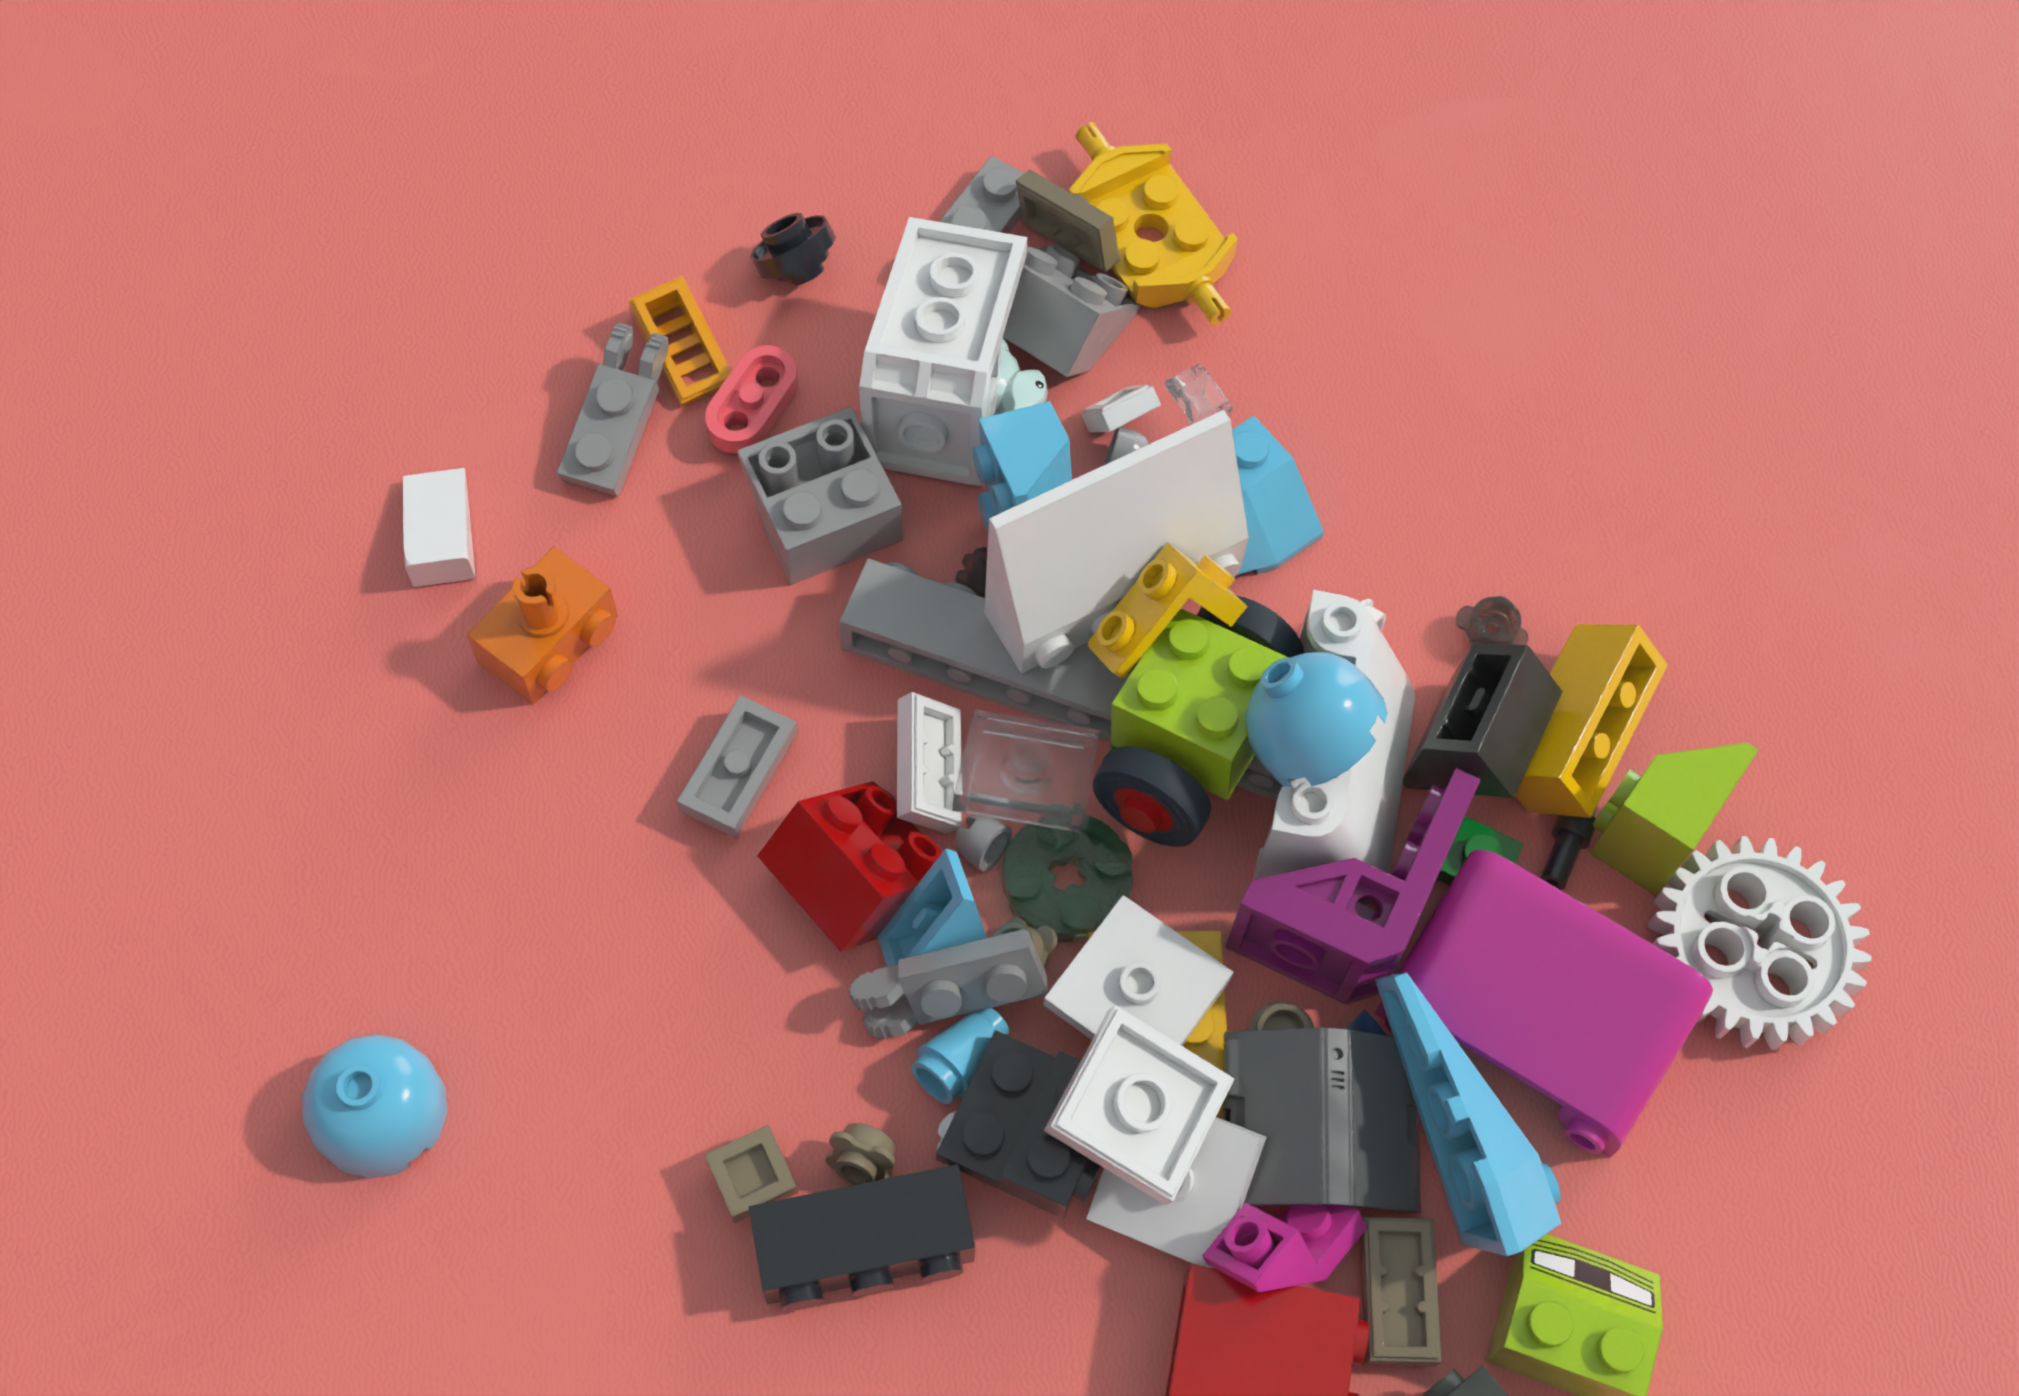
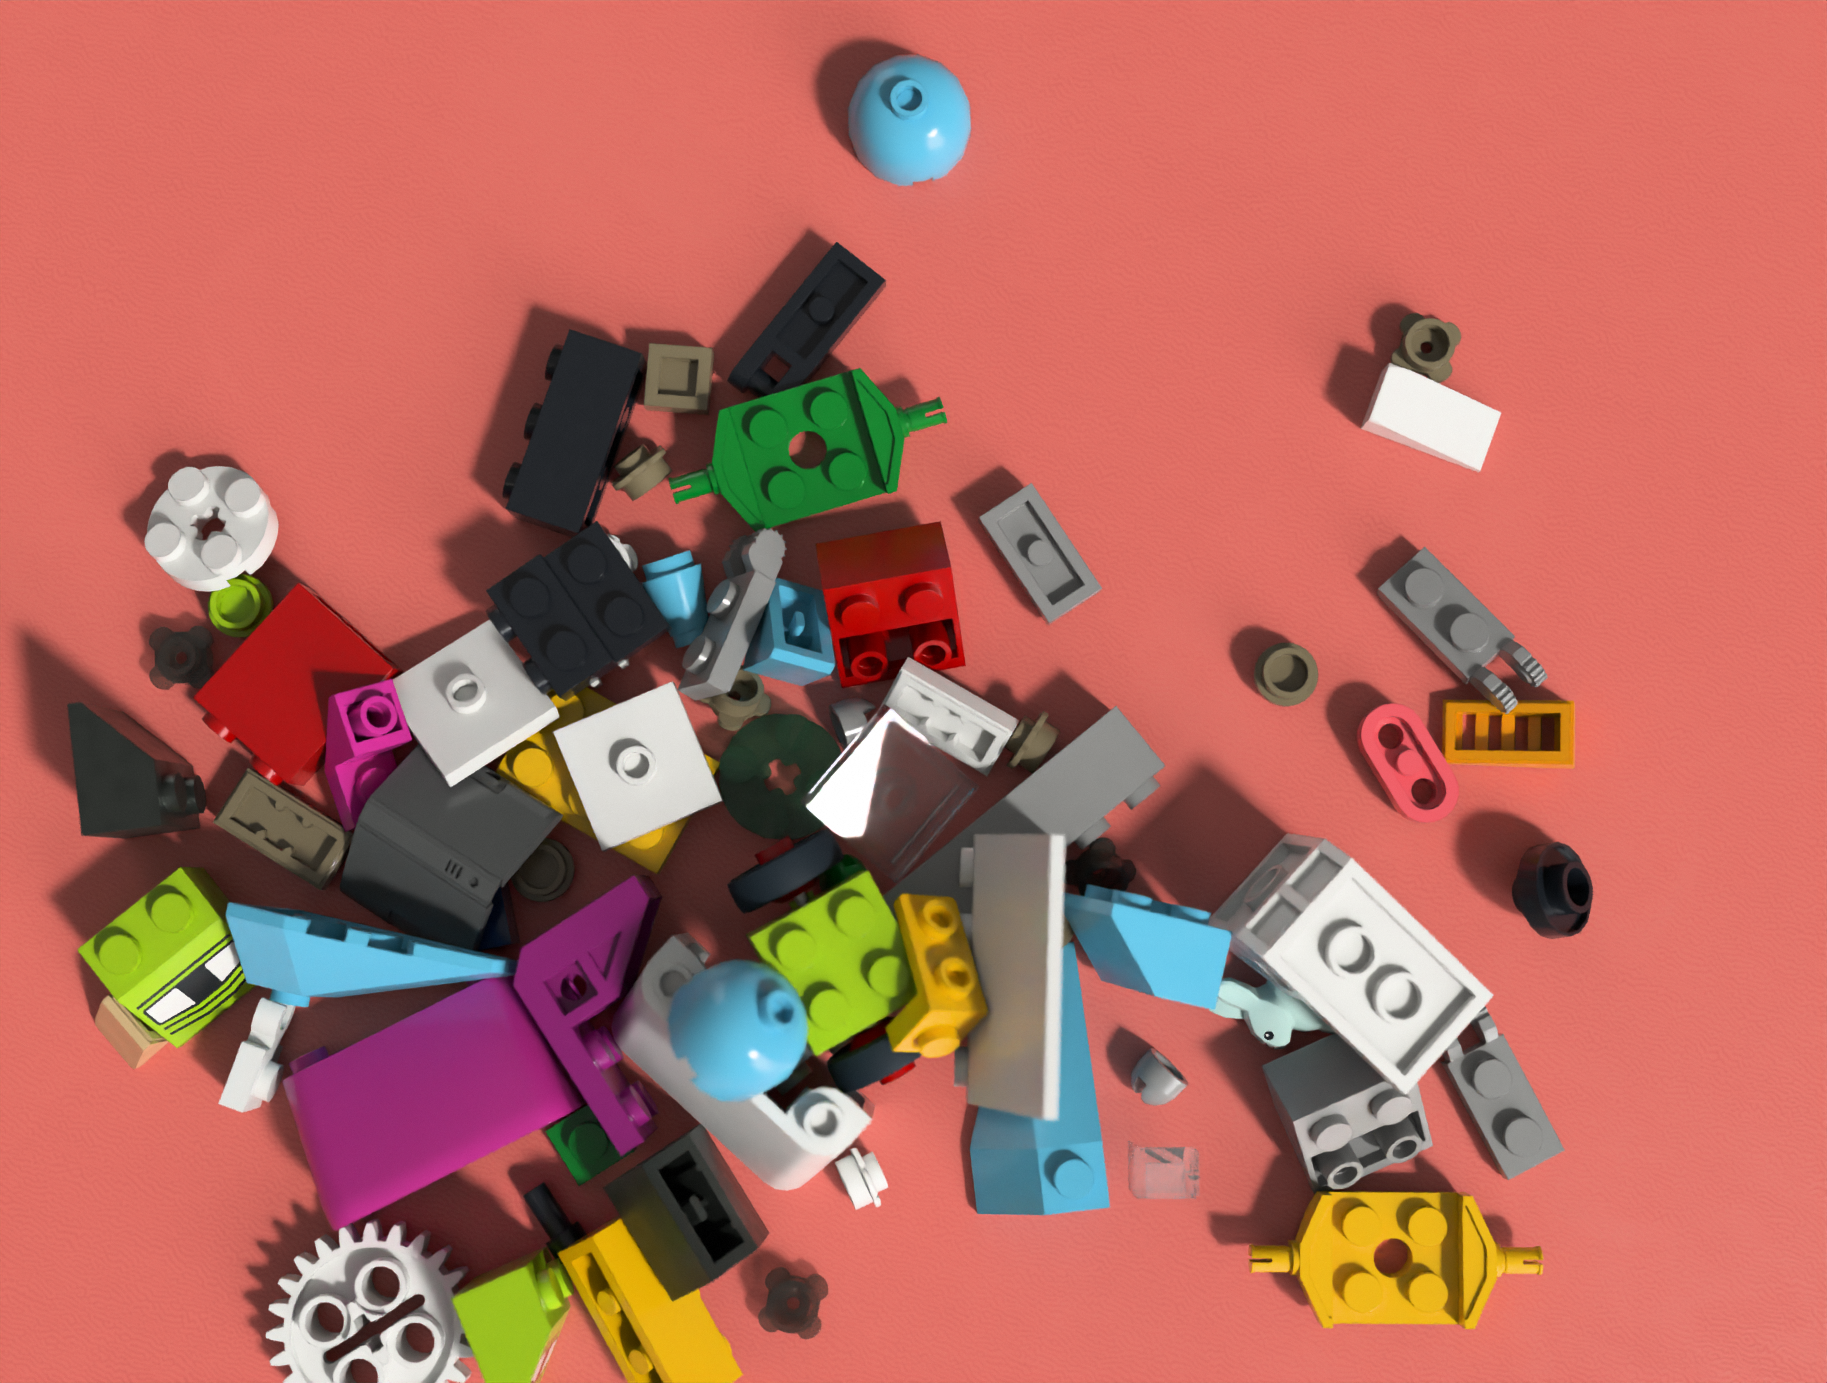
camera: 125 degrees right, 20 degrees up
(368, 543) = (1442, 339): none -> dark tan plate
(544, 625) = (1266, 457): orange brick -> none
(636, 1081) = (810, 323): none -> black plate
(729, 524) = (1285, 674): none -> dark tan plate
(731, 967) = (861, 457): none -> green plate
(822, 495) = (1264, 765): light grey slope -> none
(907, 676) = (1031, 742): none -> dark tan plate
(1068, 220) = (1438, 1175): dark tan plate -> none
(1120, 408) = (1203, 1098): white tile -> none
(1139, 1105) = (523, 691): white plate -> none
(1626, 1179) = (255, 1069): none -> white plate
(1682, 1326) = (127, 1033): none -> tan slope

